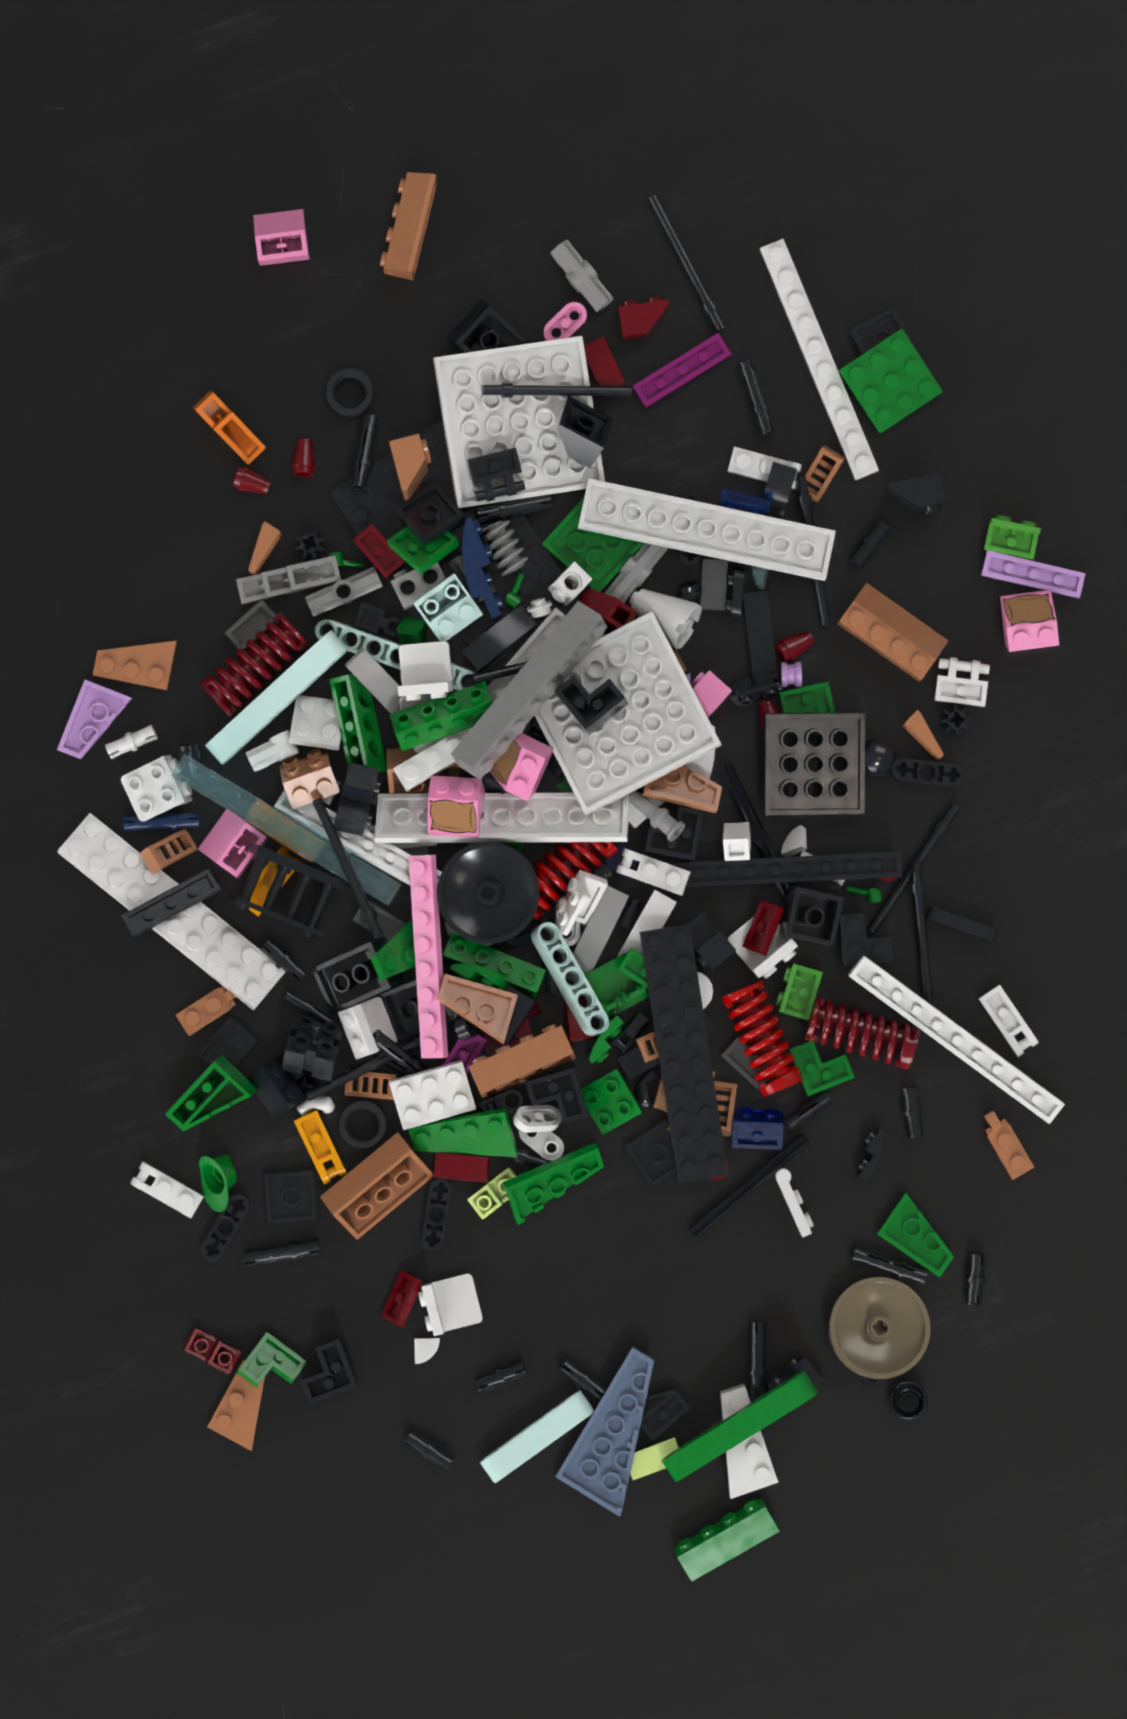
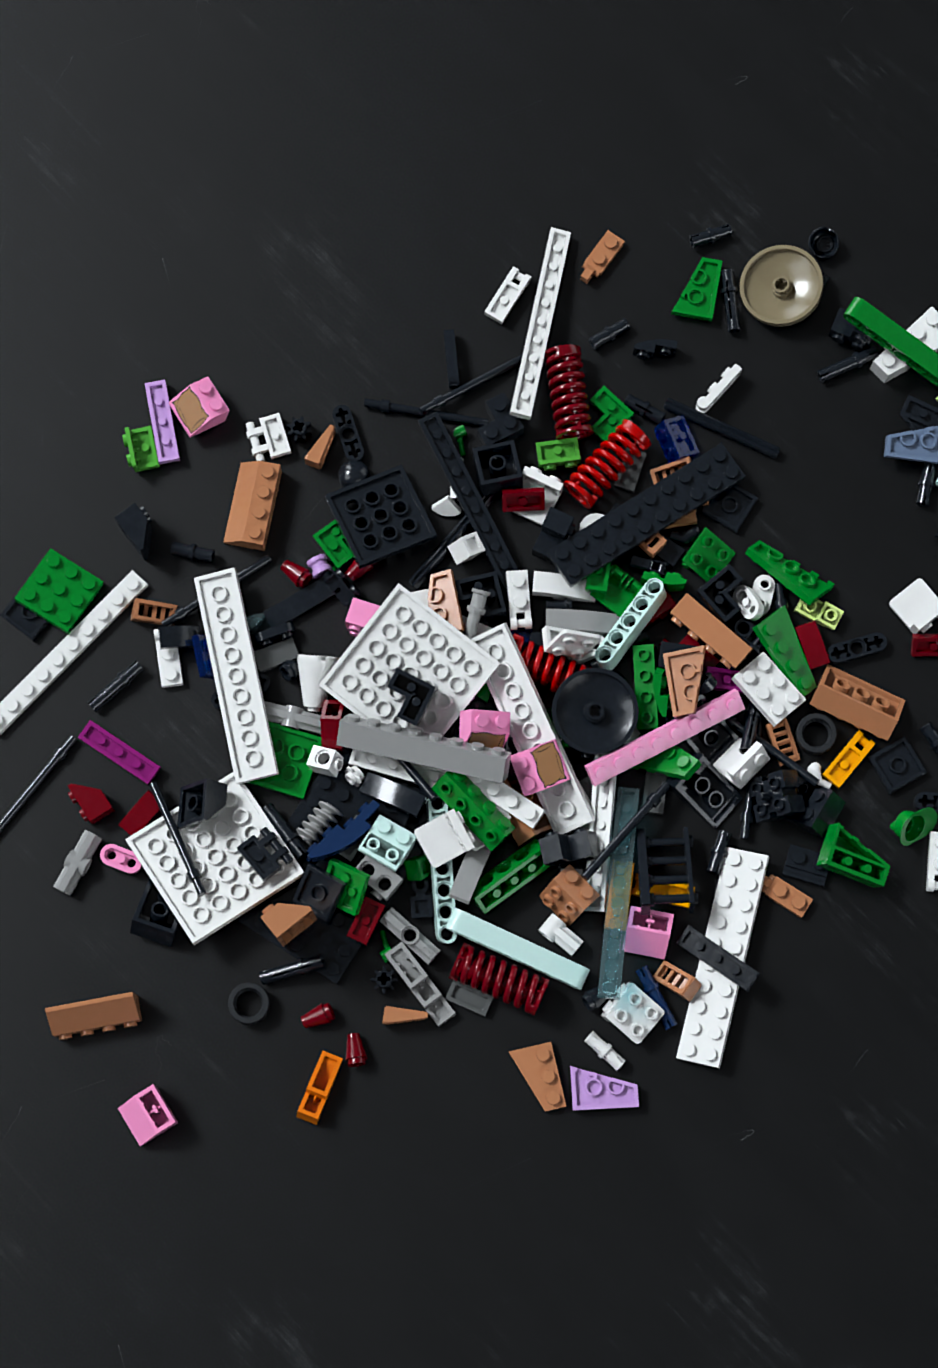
camera: 110 degrees left, 10 degrees down
(315, 723) = (523, 910): white plate -> none
(512, 599) = (357, 801): green hand -> none

